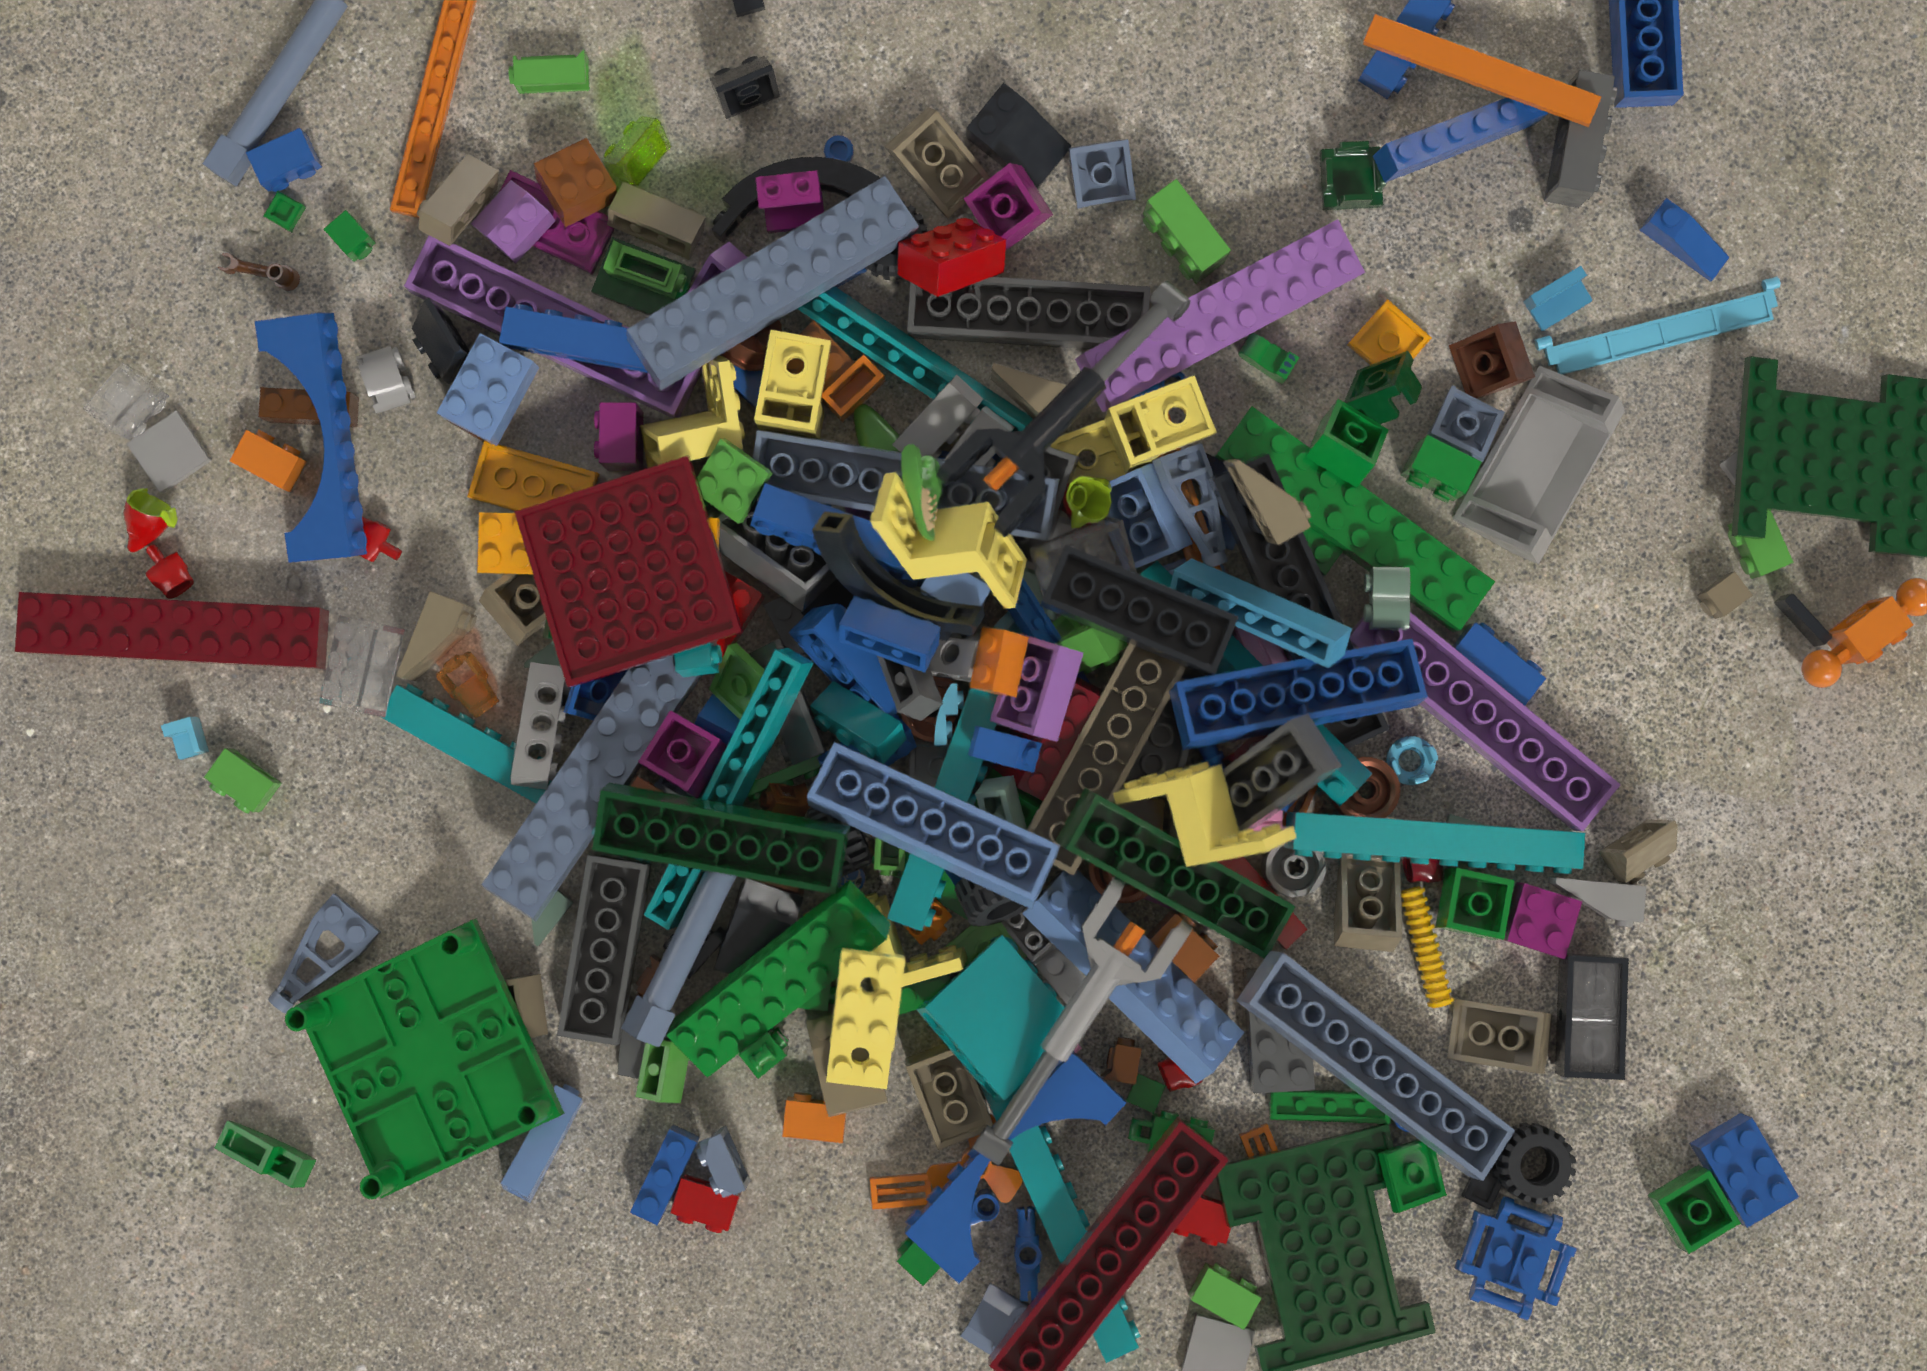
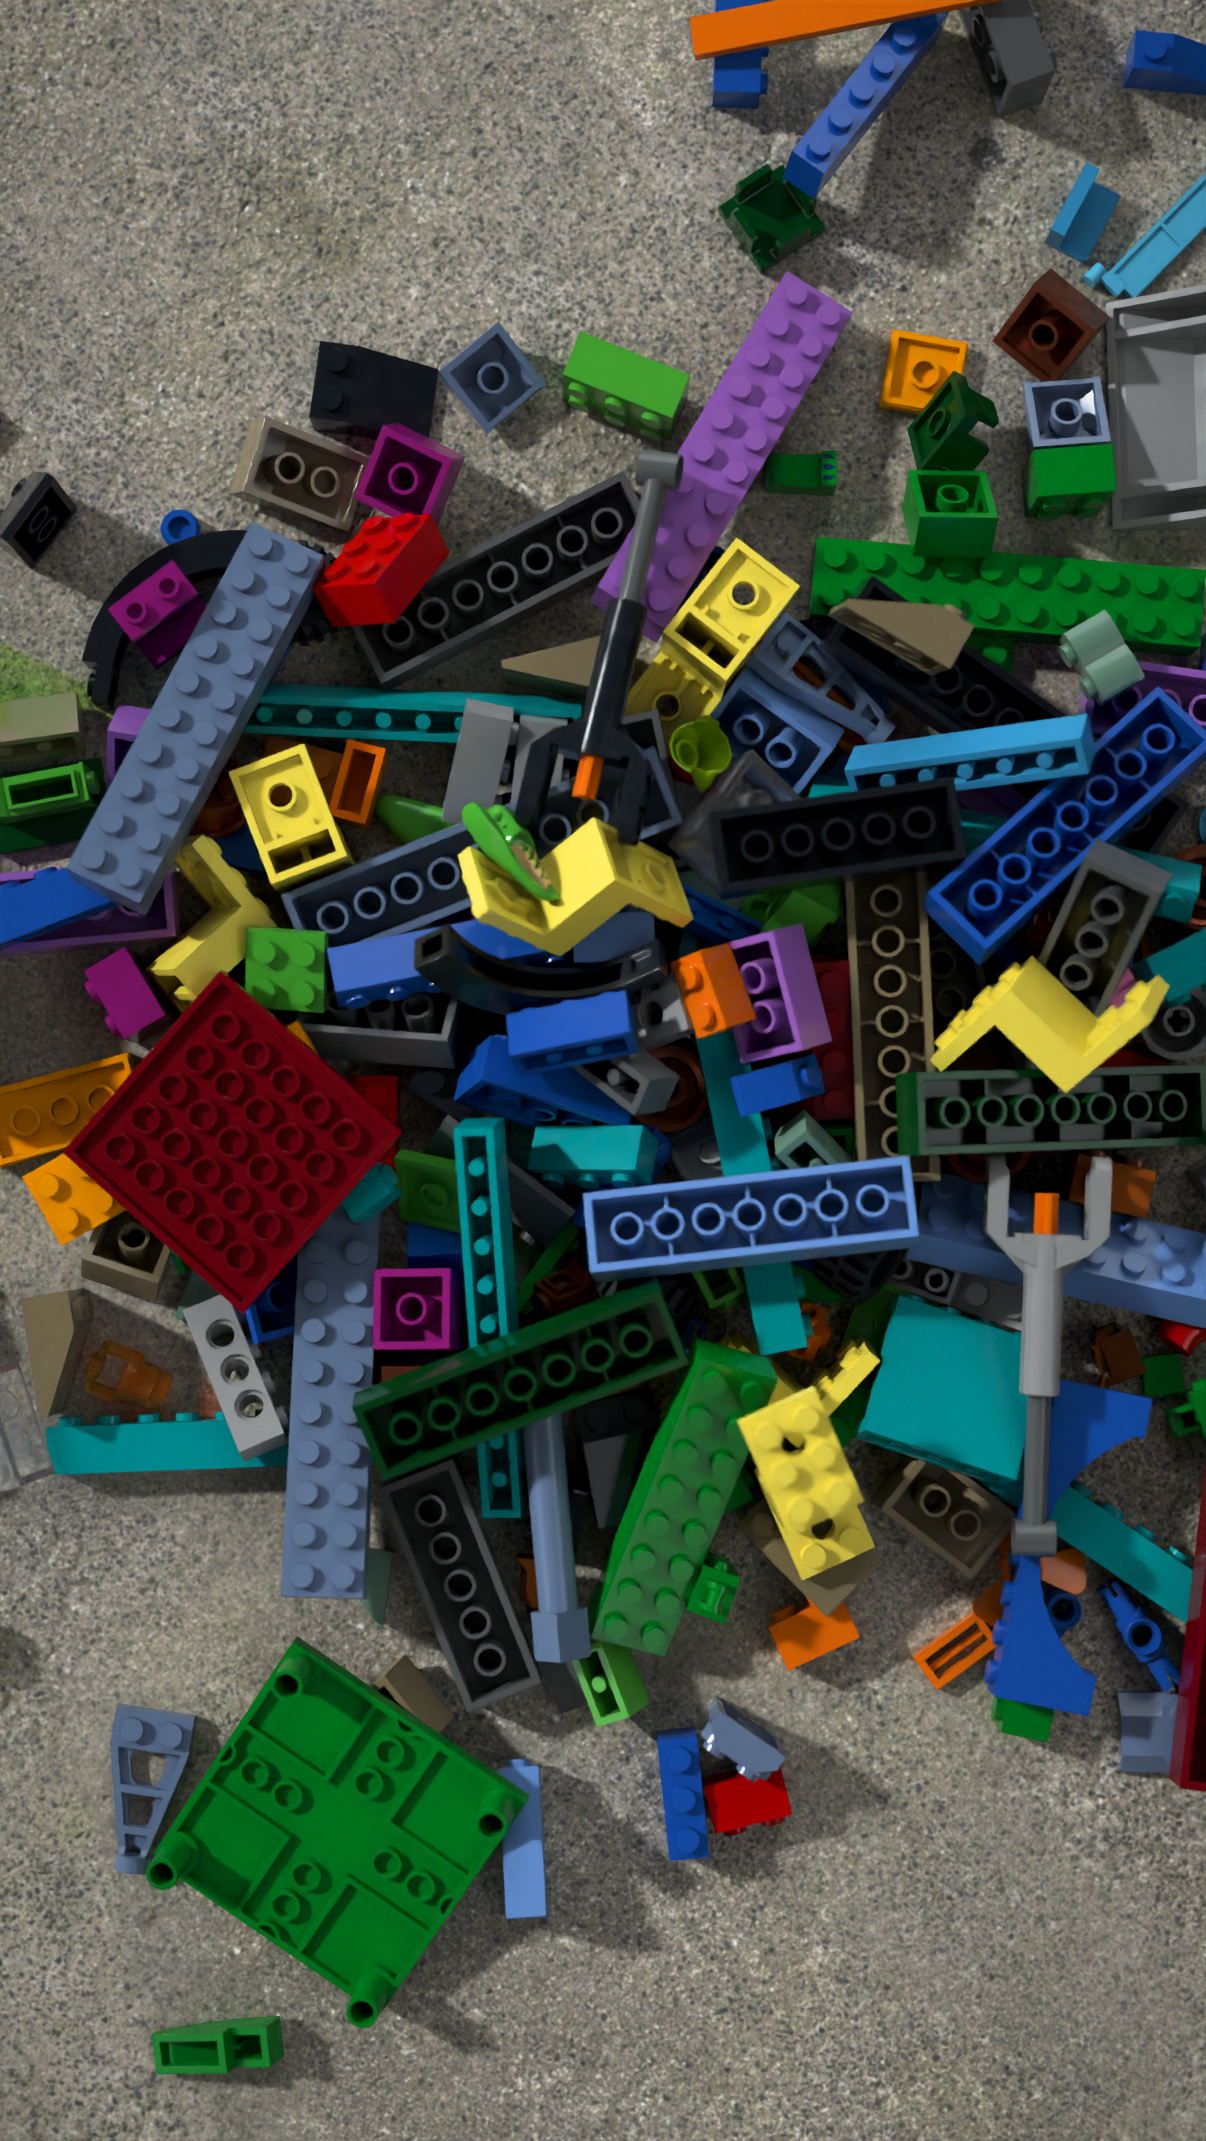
camera: 30 degrees left, 0 degrees up
(952, 702) = (692, 1104): medium azure slope -> none

